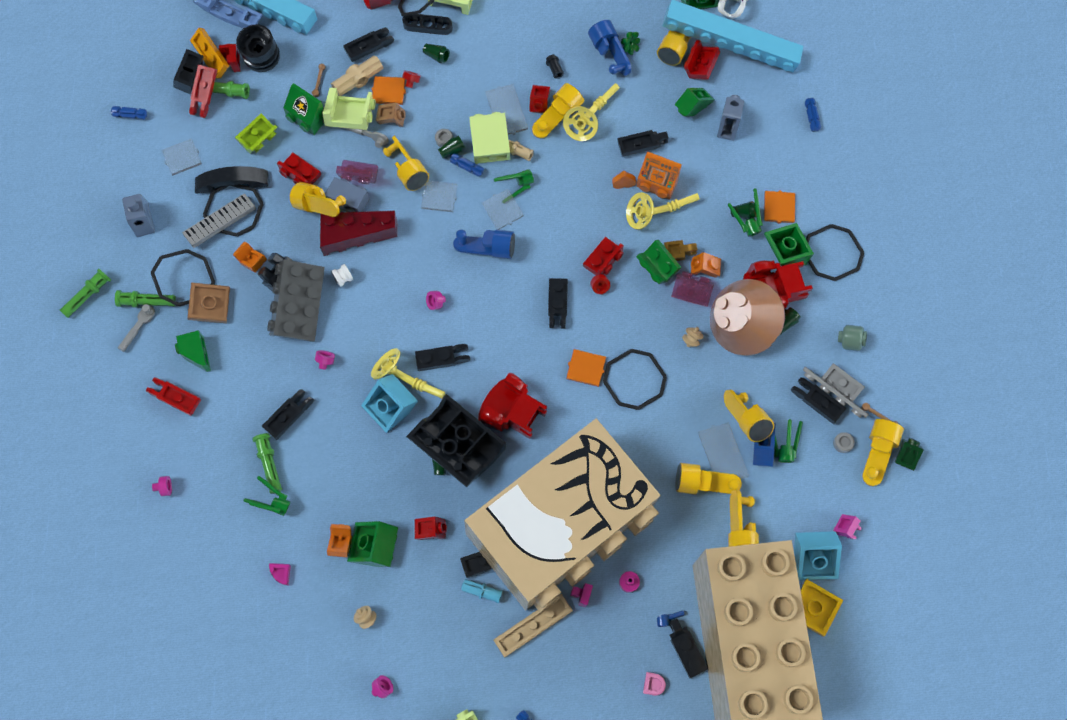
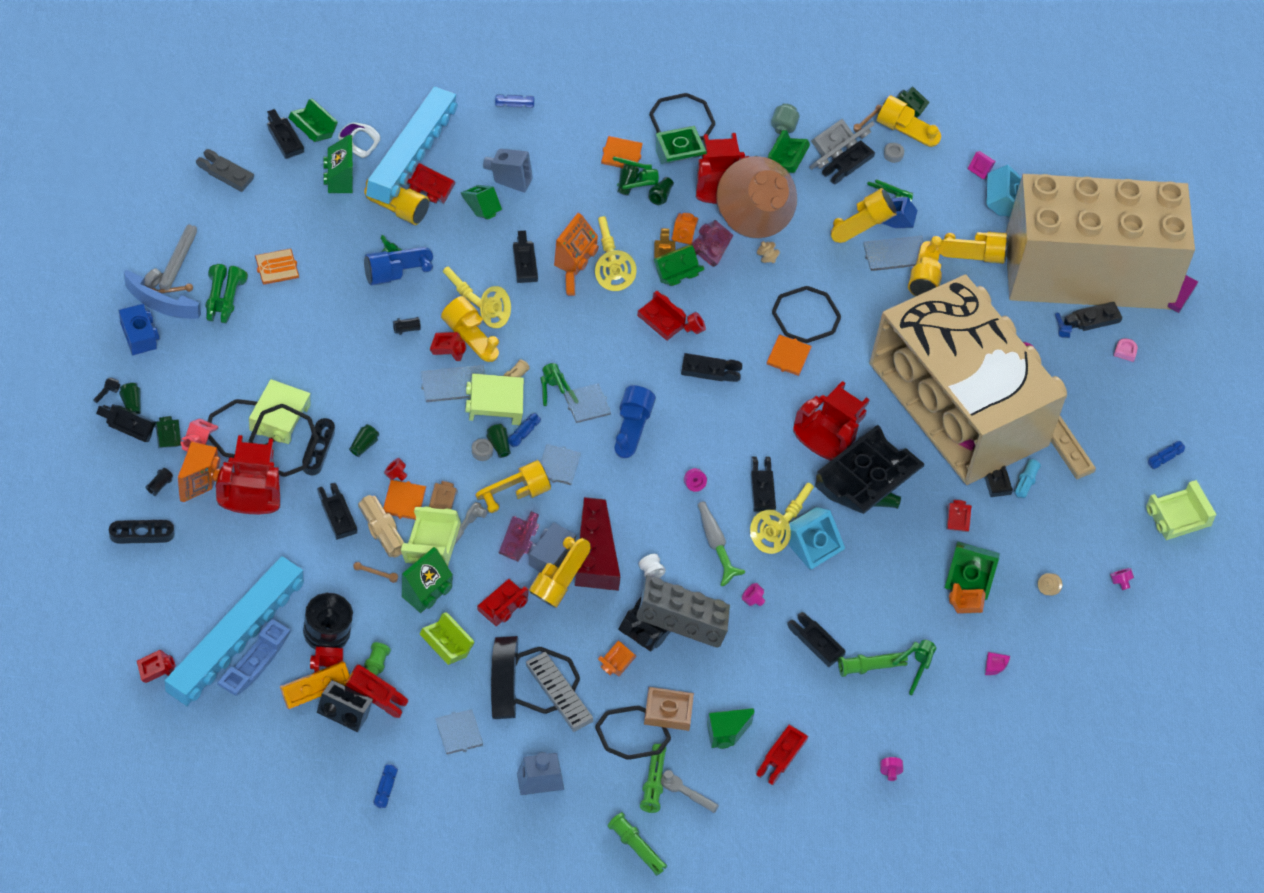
camera: 90 degrees left, 15 degrees down
(376, 325) = (717, 542): none -> piece
(740, 240) = (659, 193): none -> dark green cone
(813, 343) = (789, 151): none -> green bracket

